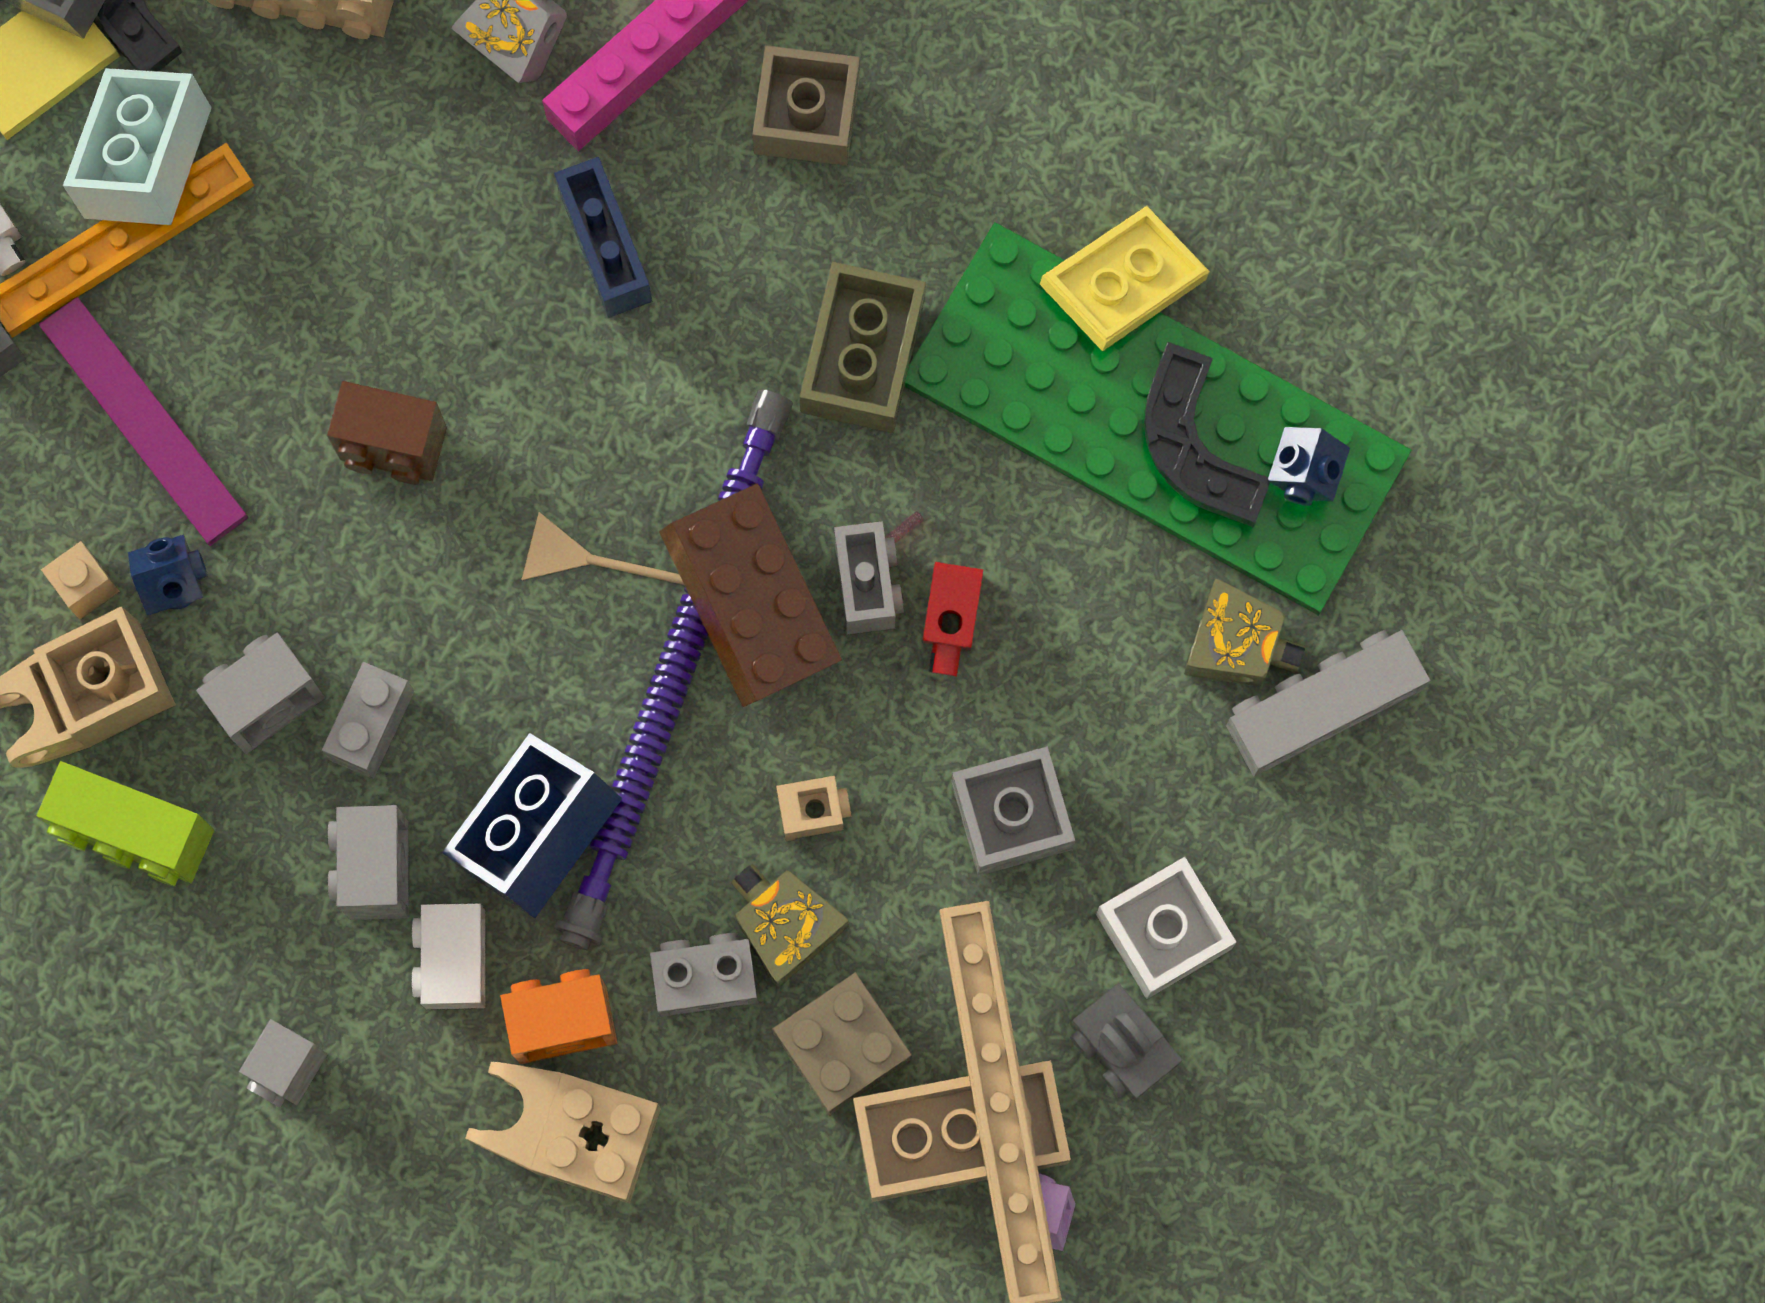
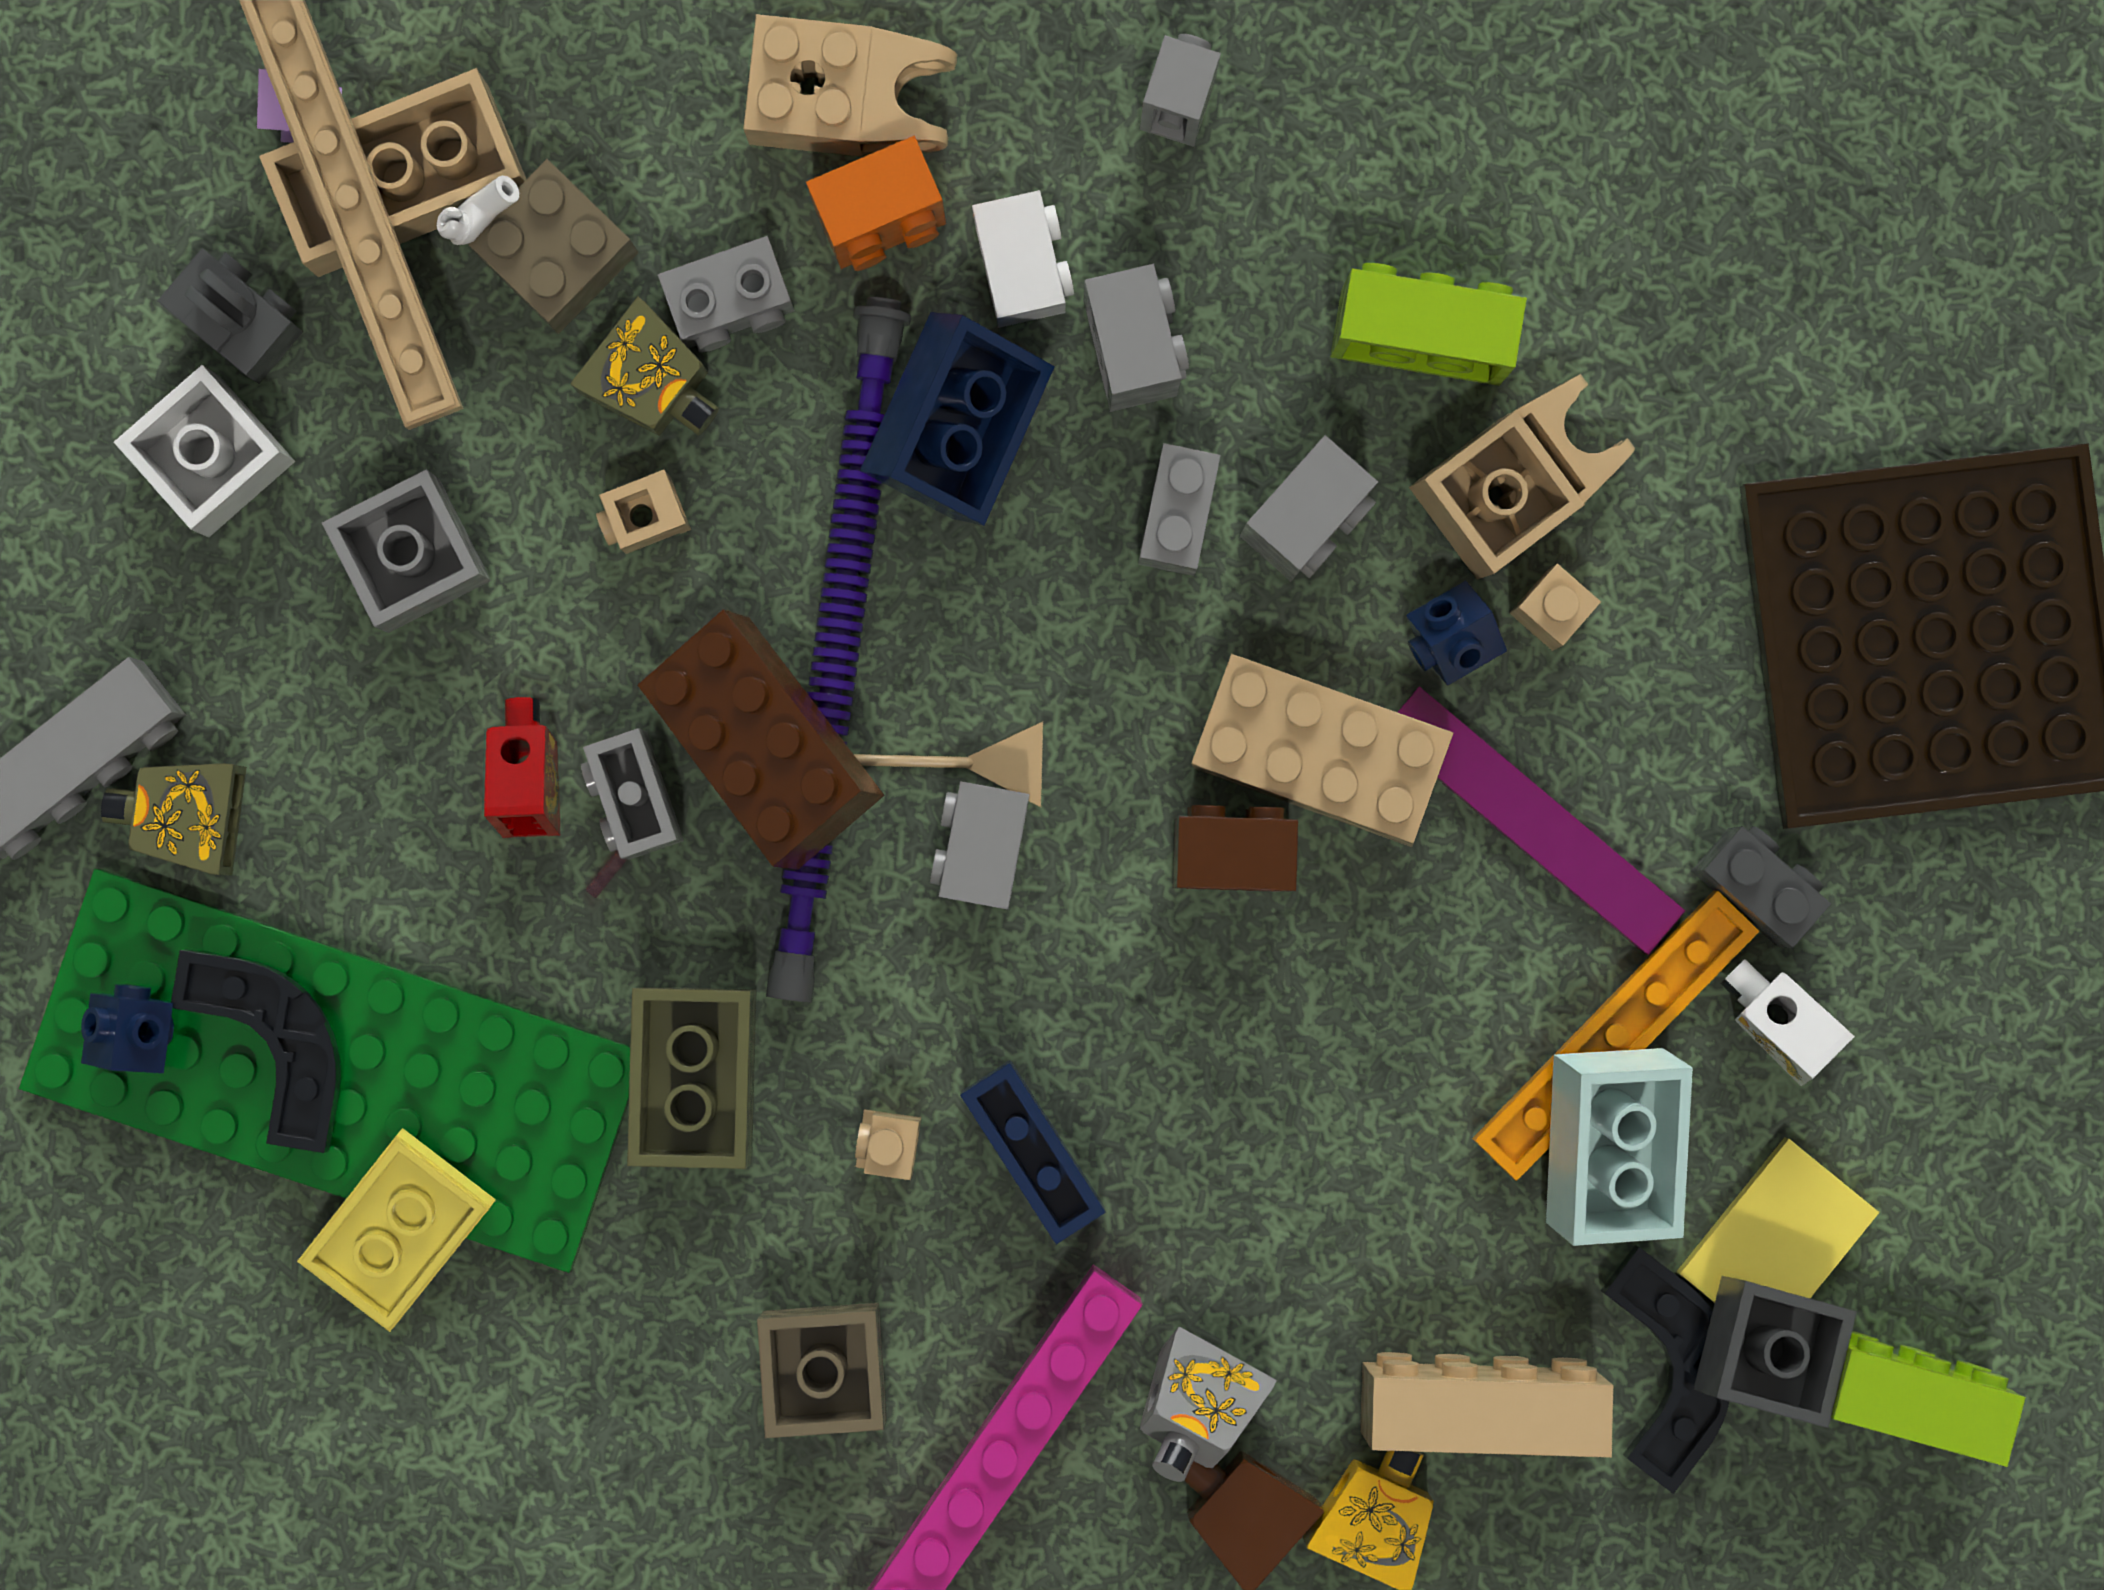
camera: 165 degrees right, 10 degrees up
(297, 501) = (1321, 750): none -> tan brick
(591, 482) = (981, 845): none -> light grey brick
(718, 267) = (887, 1144): none -> tan brick
(894, 1073) = (470, 219): none -> white arm

